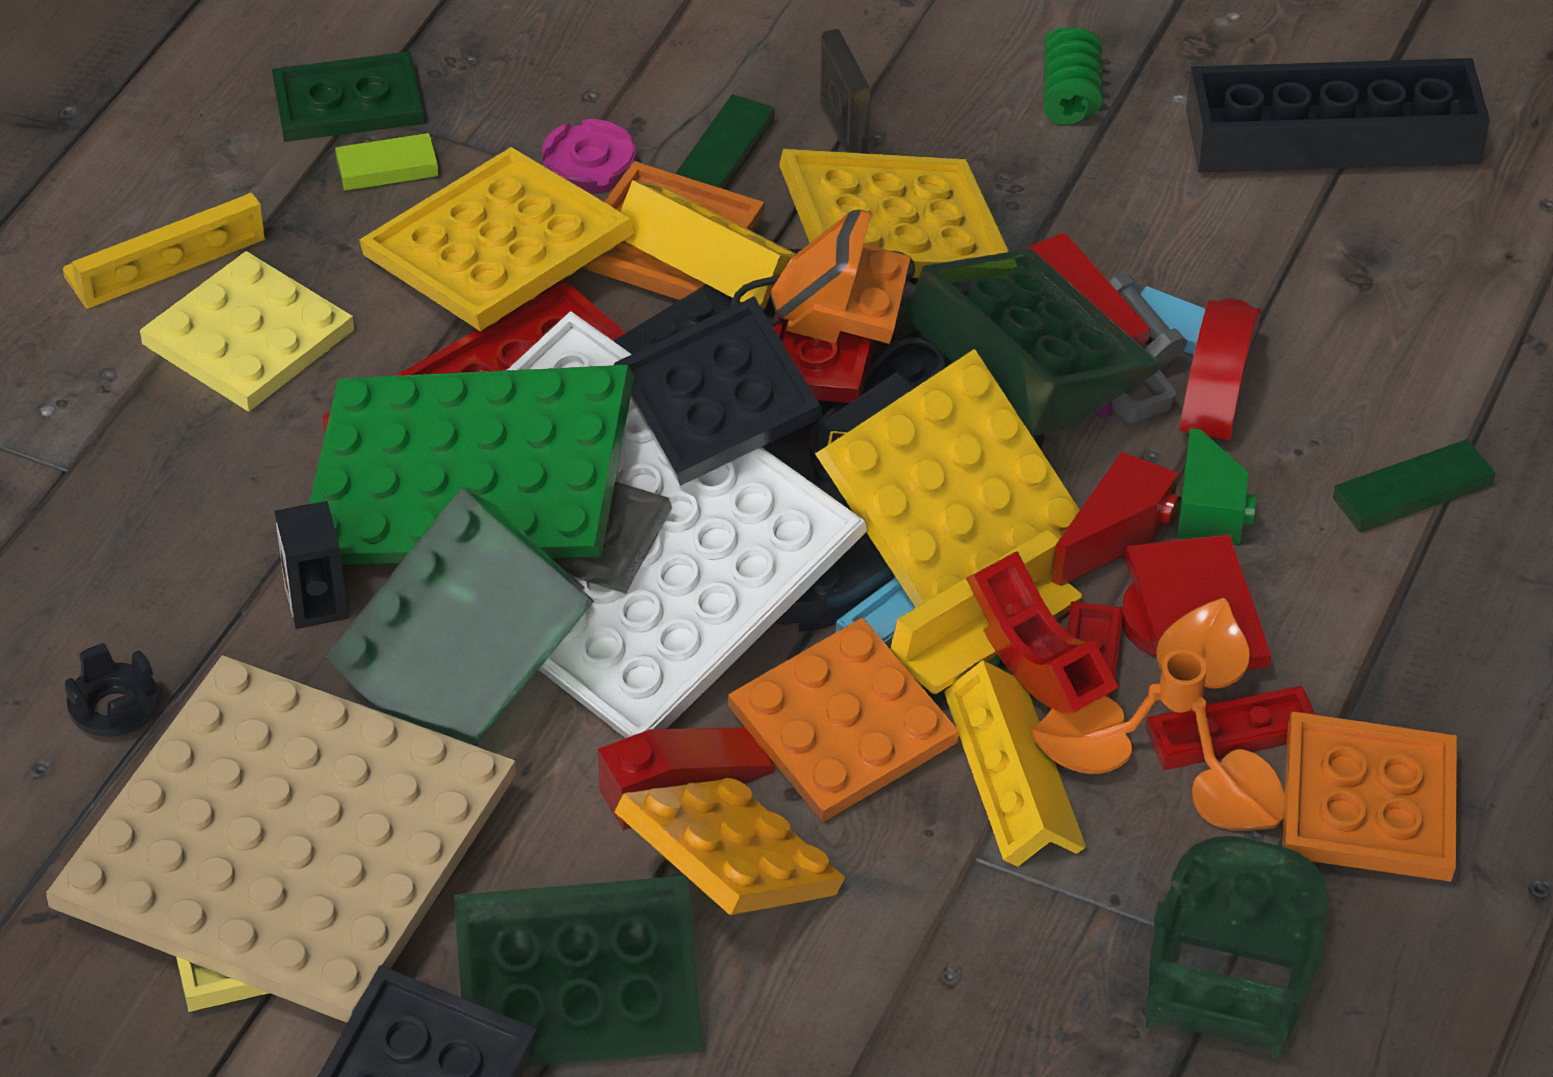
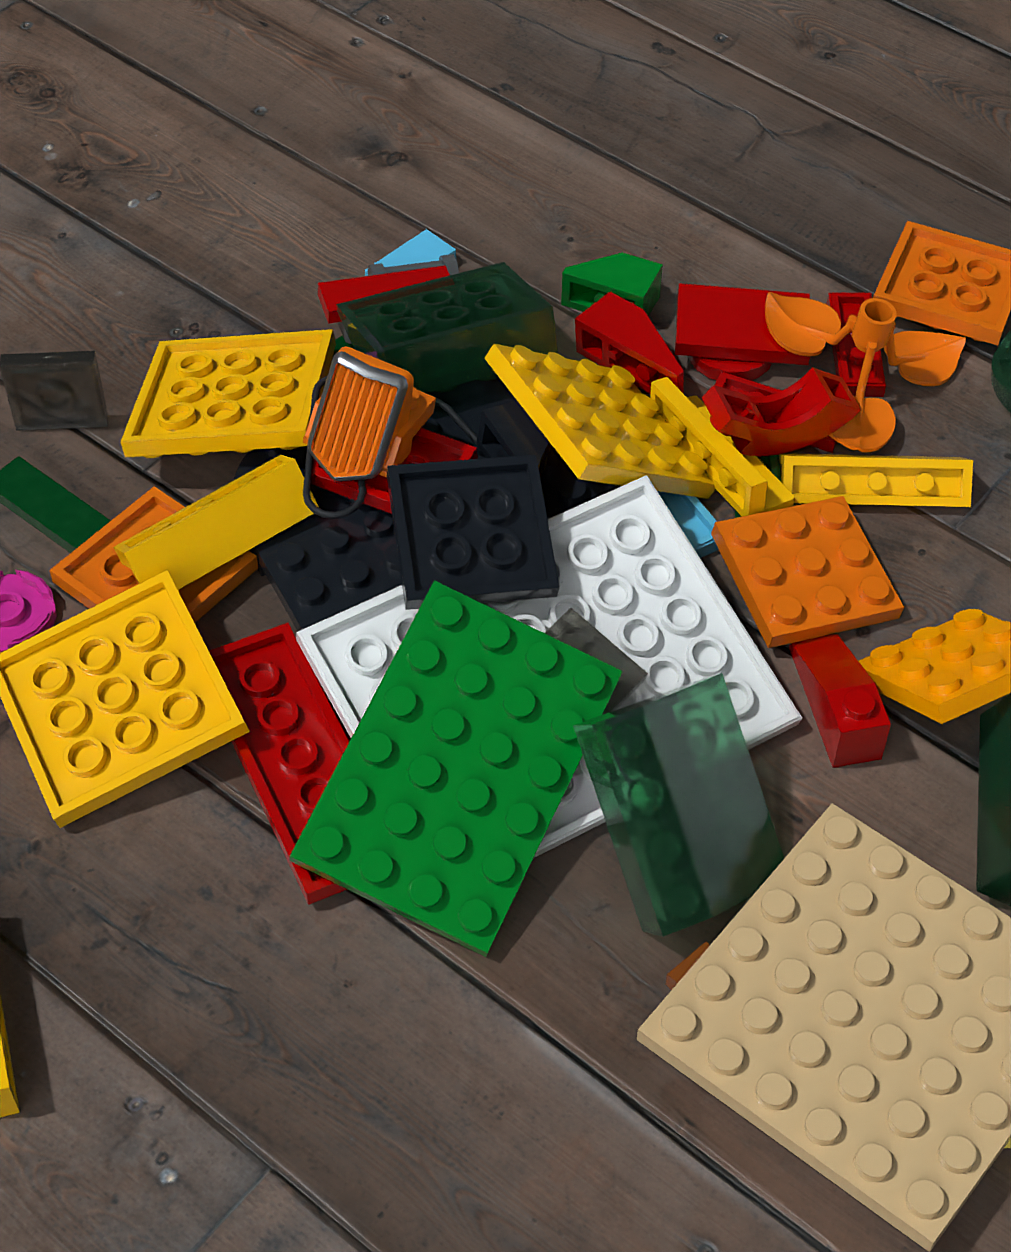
camera: 75 degrees left, 5 degrees up
(104, 677) = (634, 1127): black piece -> none
(247, 330) = (131, 953): light yellow plate -> none
(311, 564) = (534, 927): black brick -> none
(1072, 75) = (89, 248): green piece -> none
(1219, 367) = (491, 233): red arch -> none
(1336, 115) = (226, 110): black brick -> none
(1413, 485) = (635, 184): dark green tile -> none

